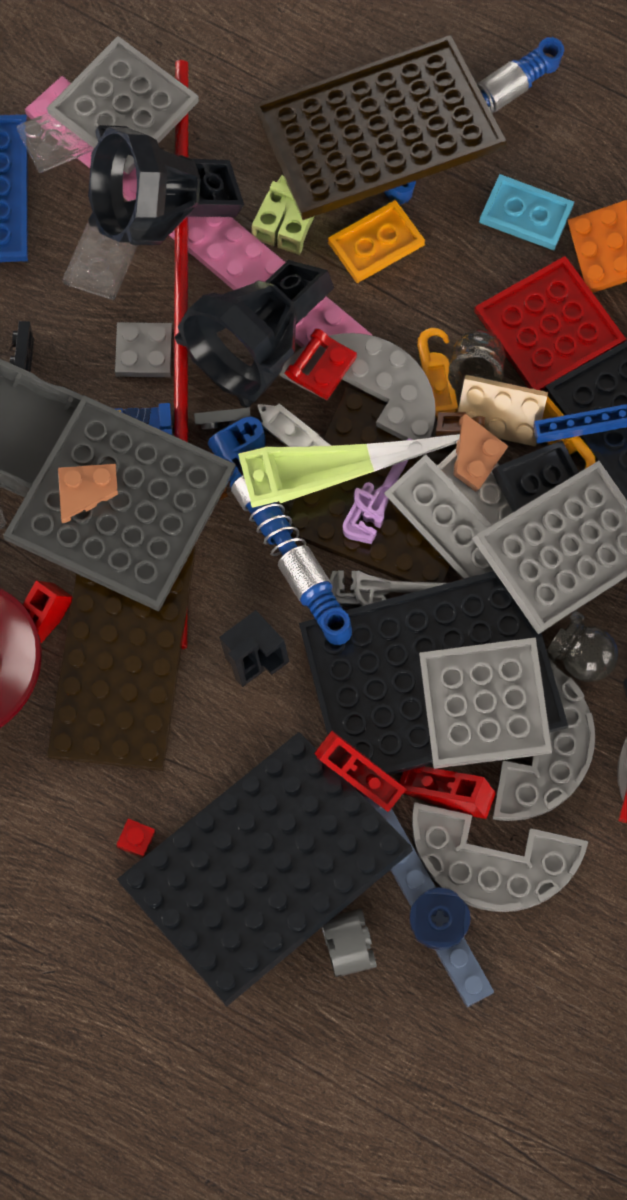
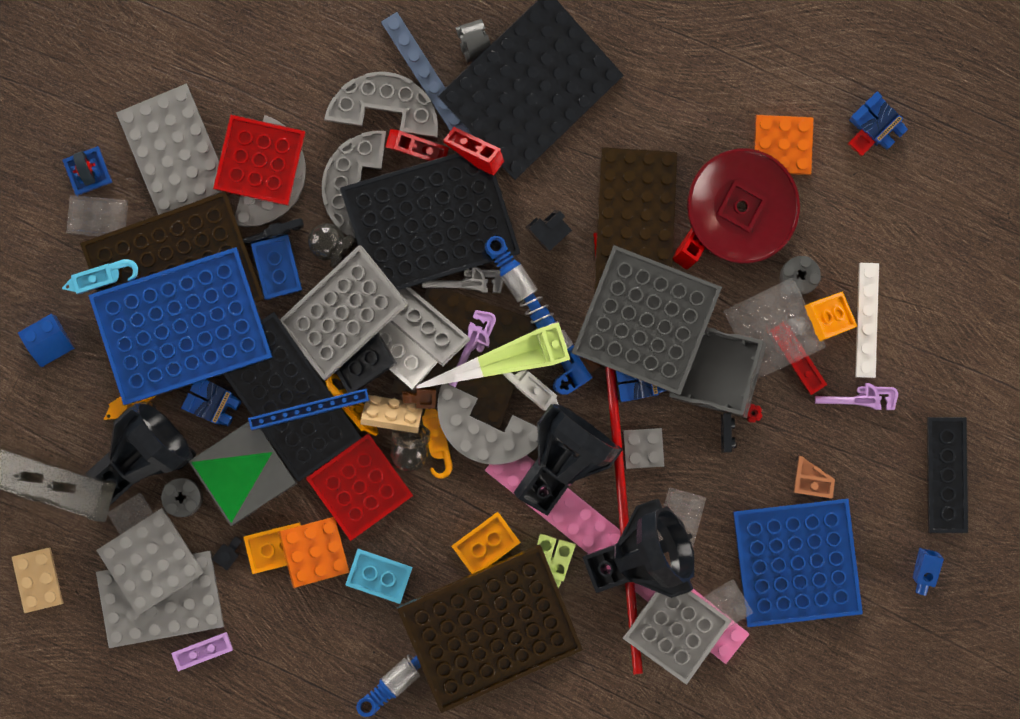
camera: 175 degrees right, 15 degrees up
(85, 487) = (671, 323): nougat wing -> none
(136, 838) = (614, 103): red plate -> none
(209, 419) = (585, 398): dark grey plate -> none
(329, 368) = (512, 431): red plate -> none
(450, 932) = (410, 52): dark blue plate -> none
(476, 453) = (407, 373): nougat wing -> none
(485, 703) = (394, 197): light grey plate -> none

